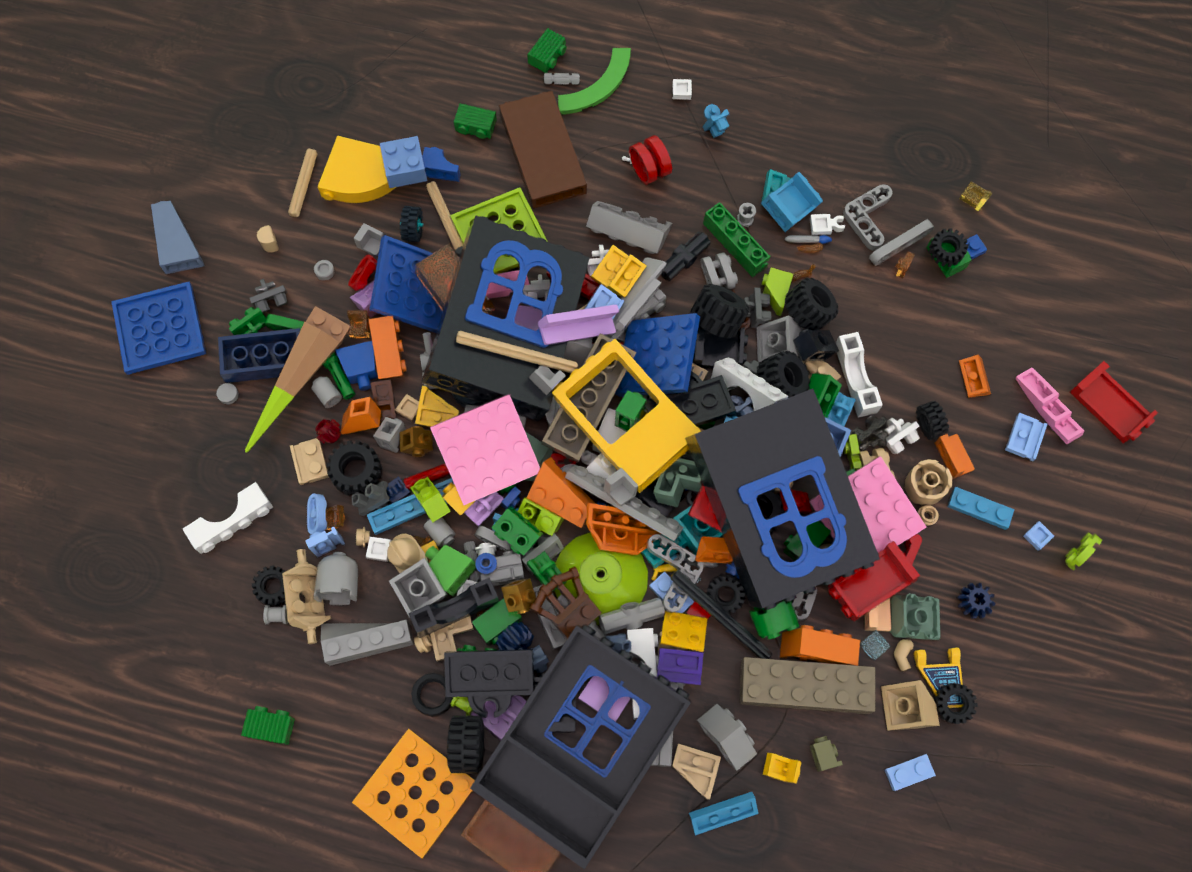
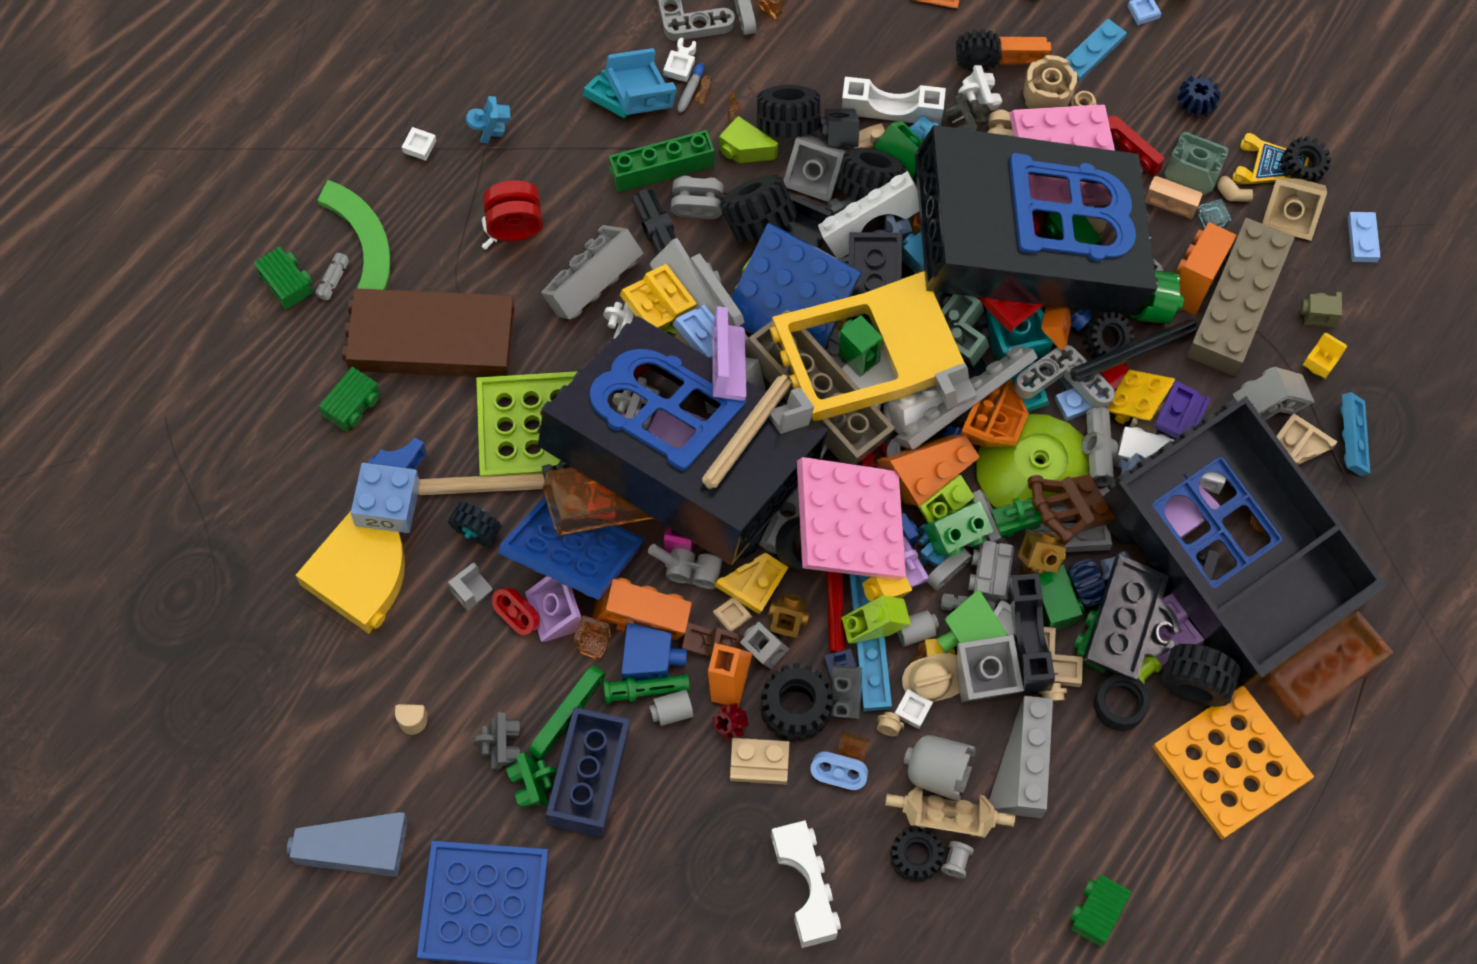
camera: 70 degrees left, 5 degrees down
(227, 393) = (620, 839): light grey tile -> none
(302, 183) = (338, 649): tan axle -> none
(312, 348) = (610, 696): medium nougat plate -> none
(323, 542) = (886, 770): light blue plate -> none
(324, 270) = (486, 661): light grey tile -> none
(486, 548) = (961, 582): white plate -> none
(488, 569) = (980, 584): blue plate -> none
(666, 567) = (1051, 393): yellow piece -> none
(746, 214) = (631, 136): light grey bush -> none
(755, 303) = (754, 167): dark grey hips -> none
(875, 584) = (1162, 189): red panel -> none

